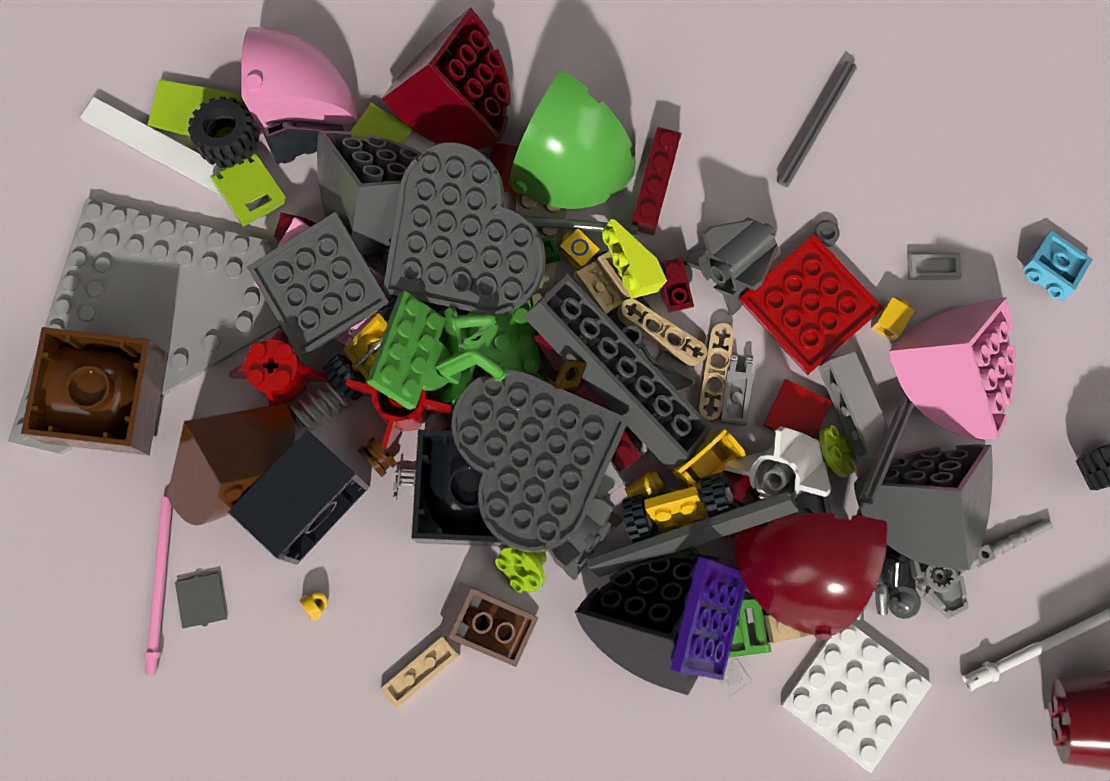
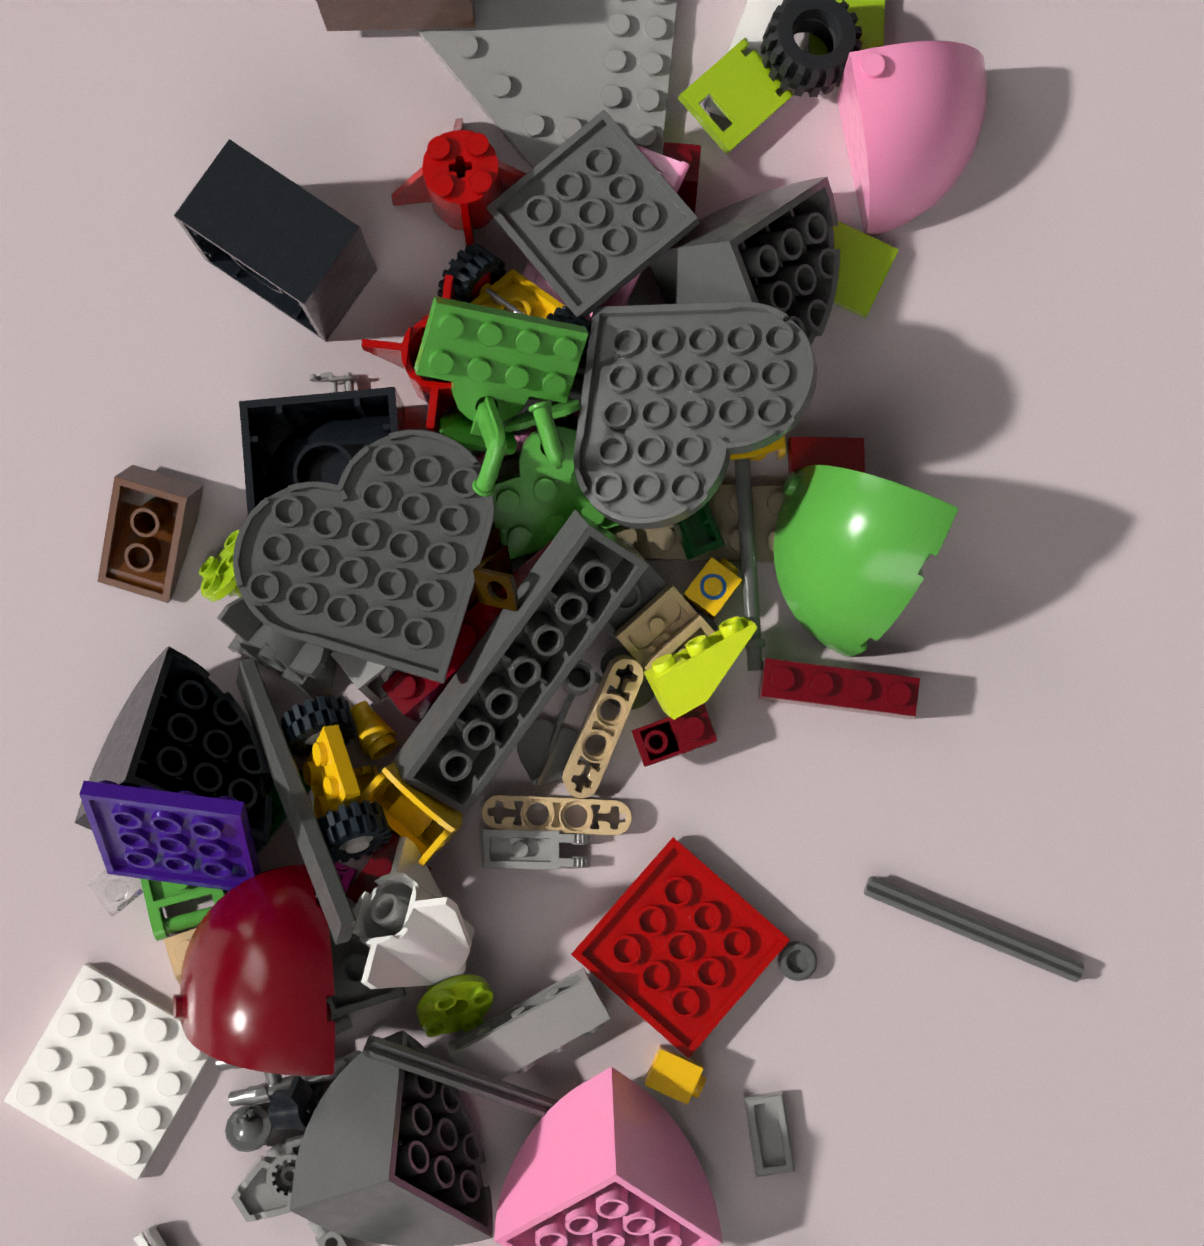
camera: 90 degrees right, 5 degrees up
(158, 588) = (60, 87): bright pink bar -> none
(201, 600) = (139, 138): dark grey piece -> none
(224, 458) = (321, 134): reddish brown brick -> none
(294, 138) = (824, 150): black slope -> none
(311, 608) = (144, 286): yellow tile -> none
(319, 406) = (422, 248): light grey piece -> none
(383, 459) = (350, 344): reddish brown wheel -> none
(419, 671) = (74, 448): tan tile -> none
(455, 87) = (935, 367): dark red brick -> none
(736, 258) = (727, 823): dark grey brick -> none
(797, 410) = (511, 944): red tile -> none

